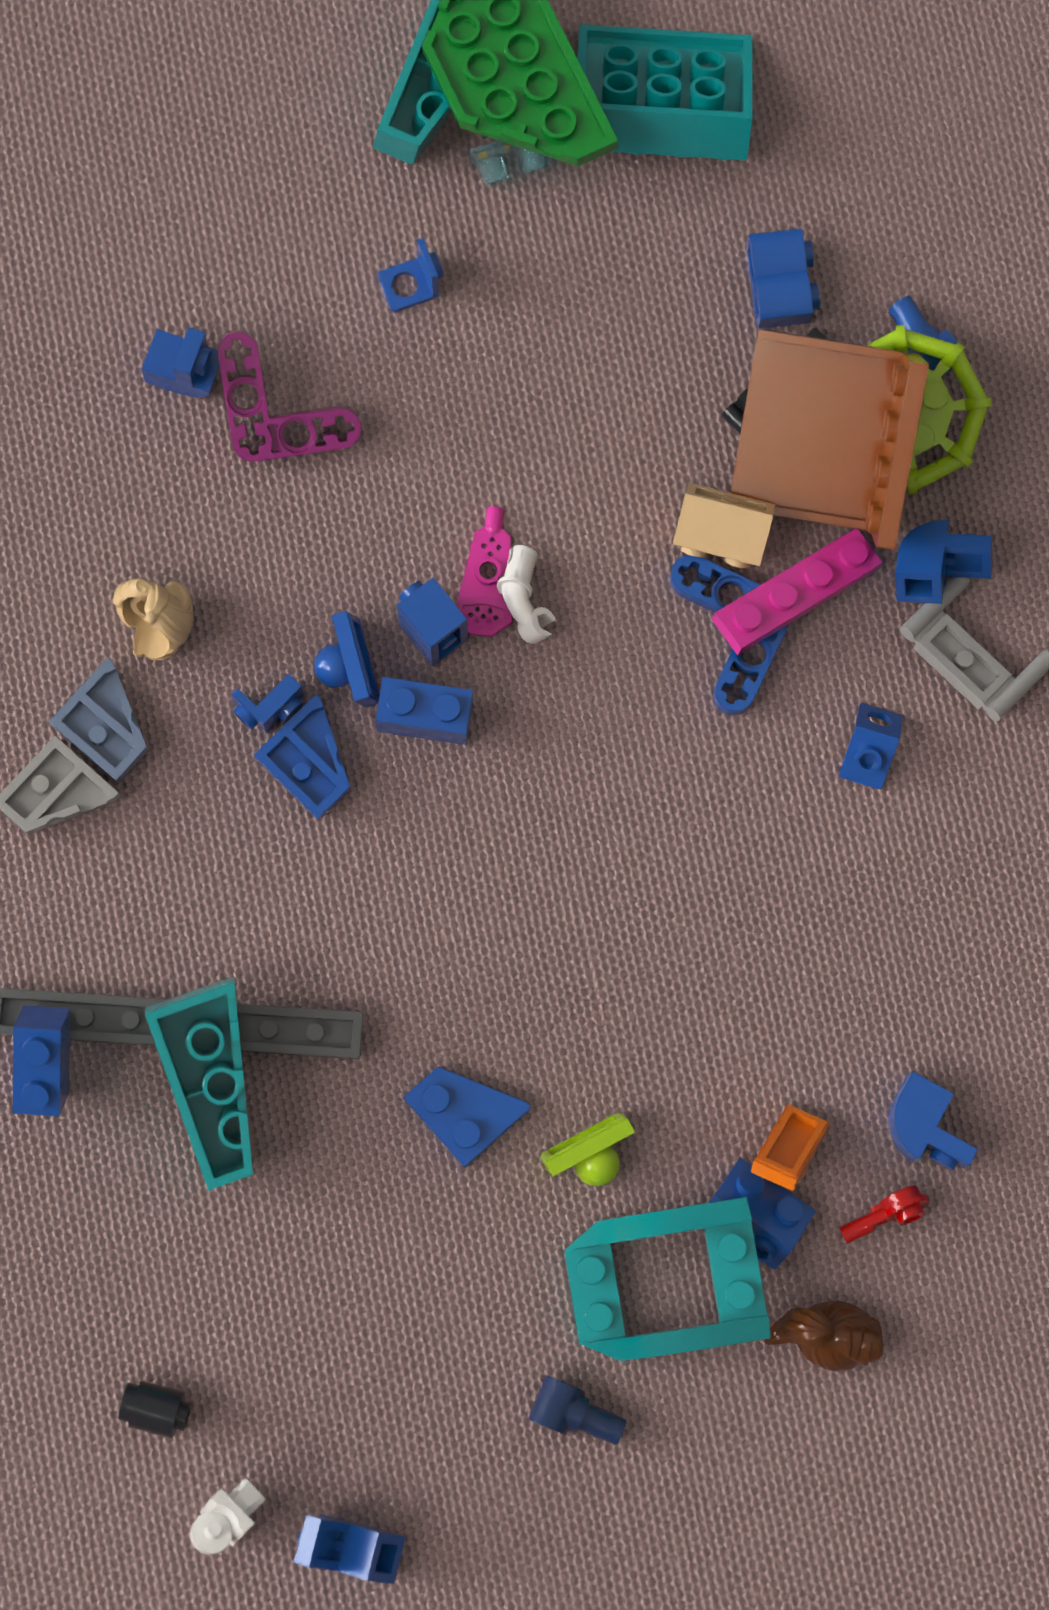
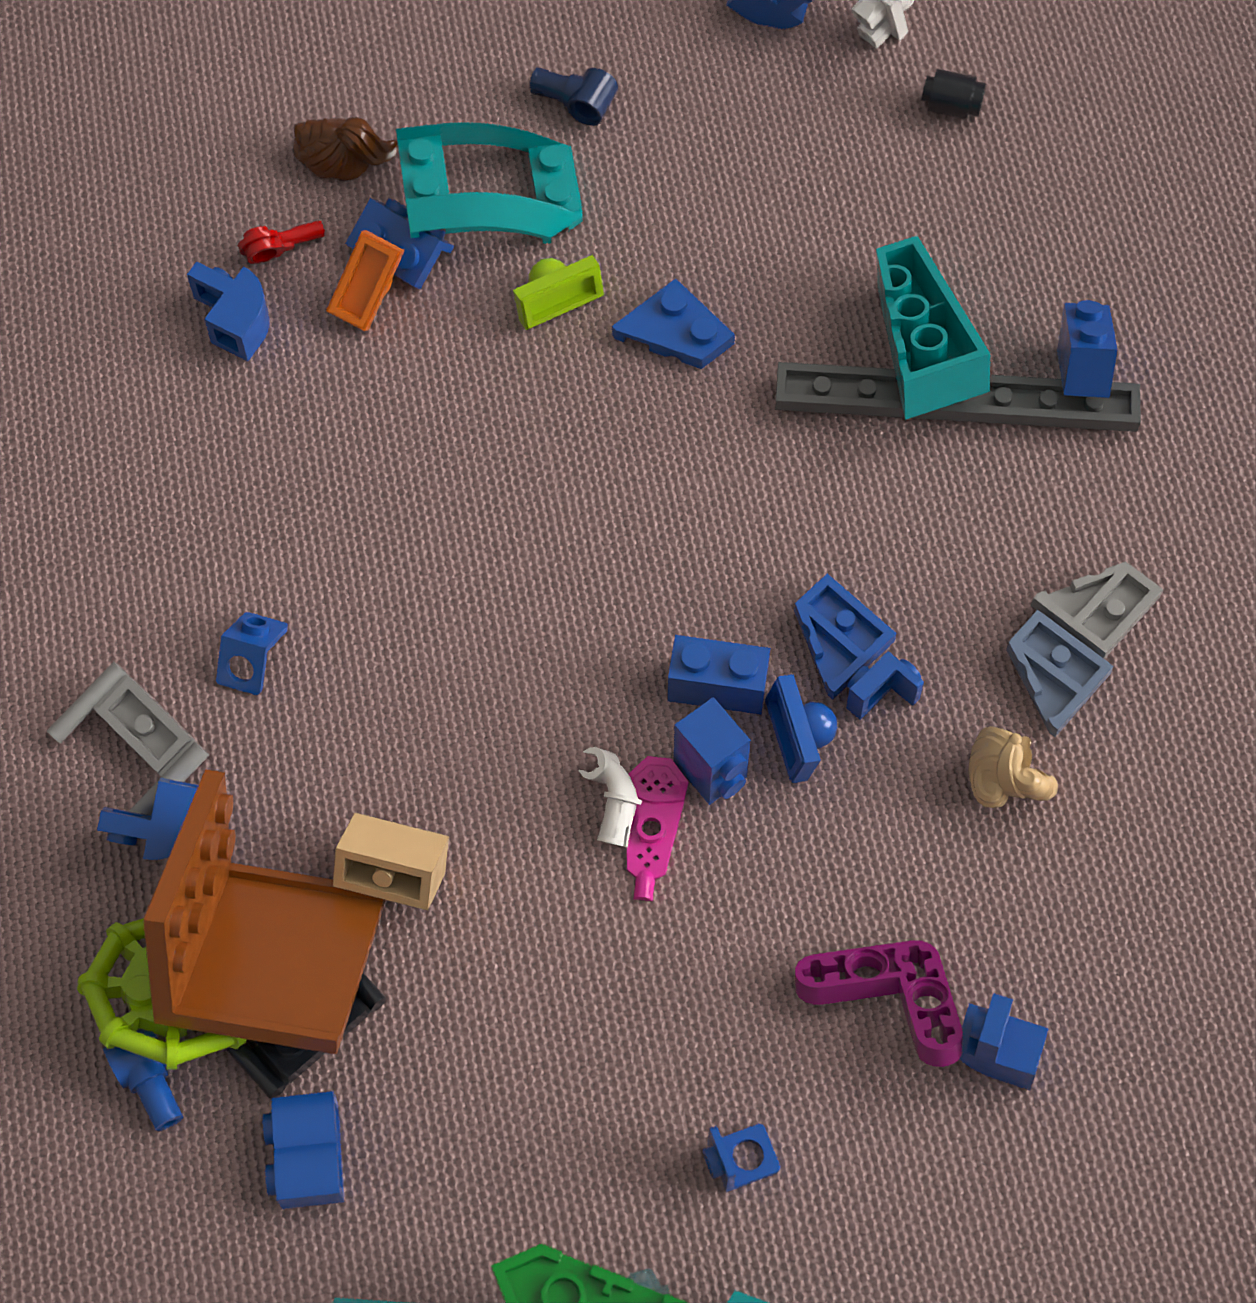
camera: 175 degrees left, 15 degrees down
(695, 594) = (367, 764): blue beam -> none
(796, 591) = (317, 792): dark pink plate -> none

